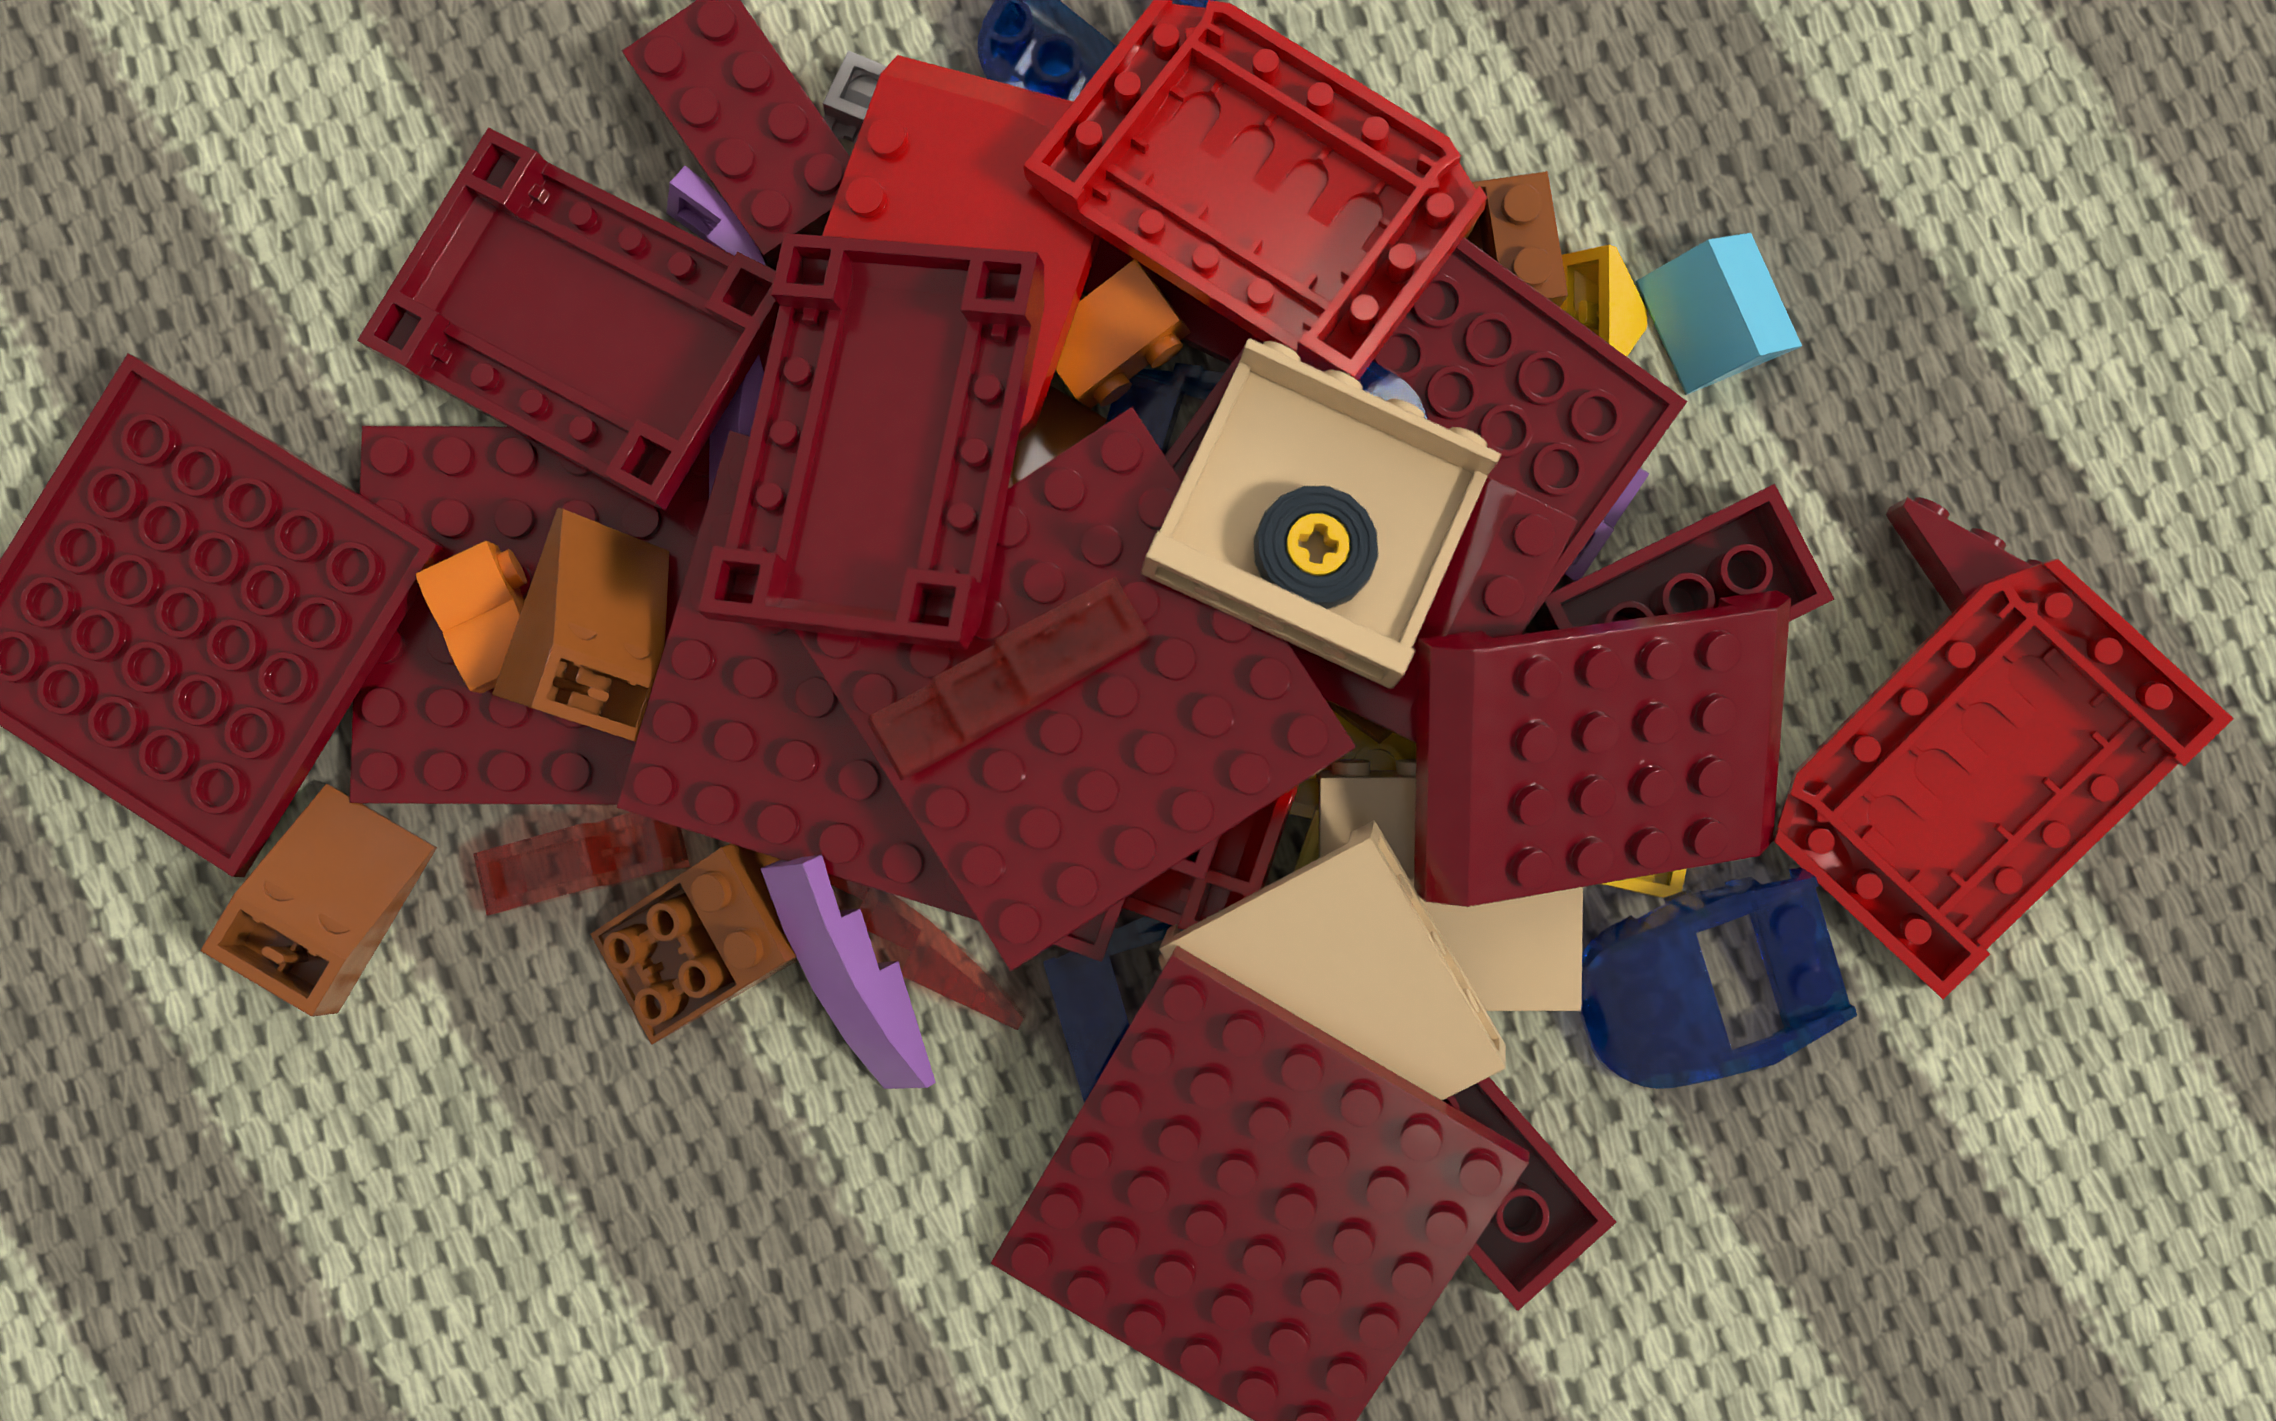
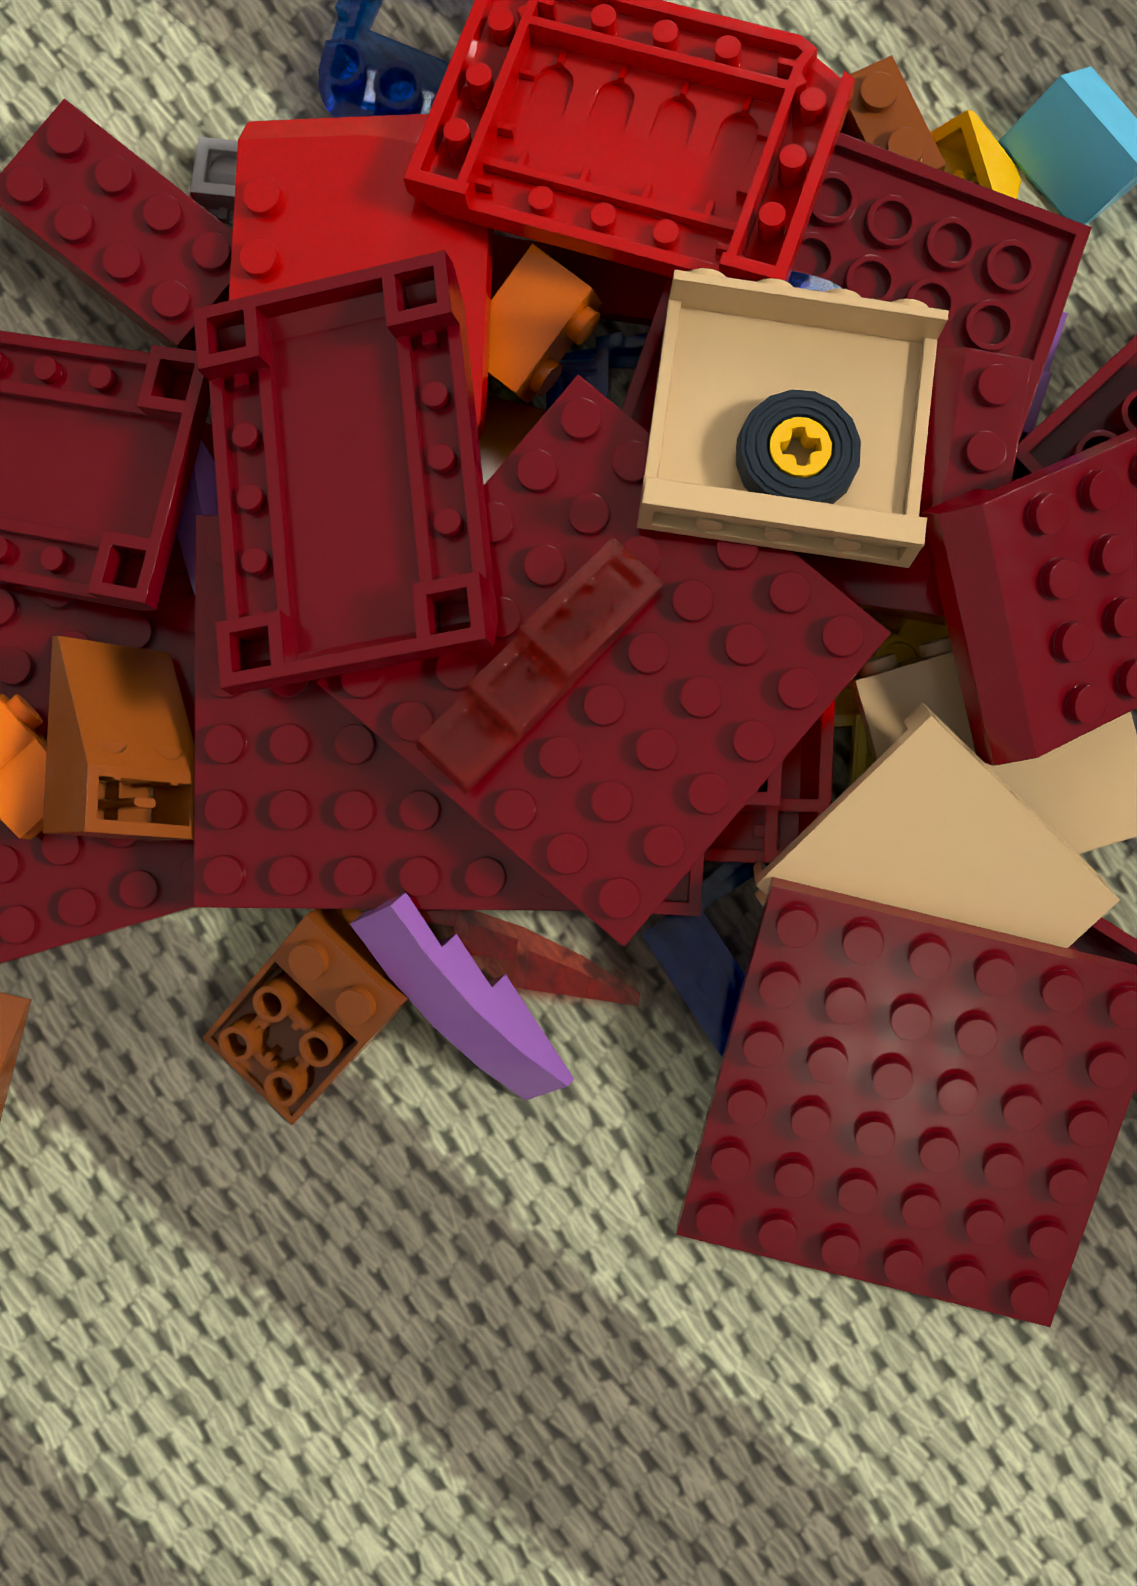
camera: 20 degrees left, 0 degrees up
(578, 861) = (171, 971): clear red slope -> none
(708, 215) = (107, 323): medium lavender slope -> none

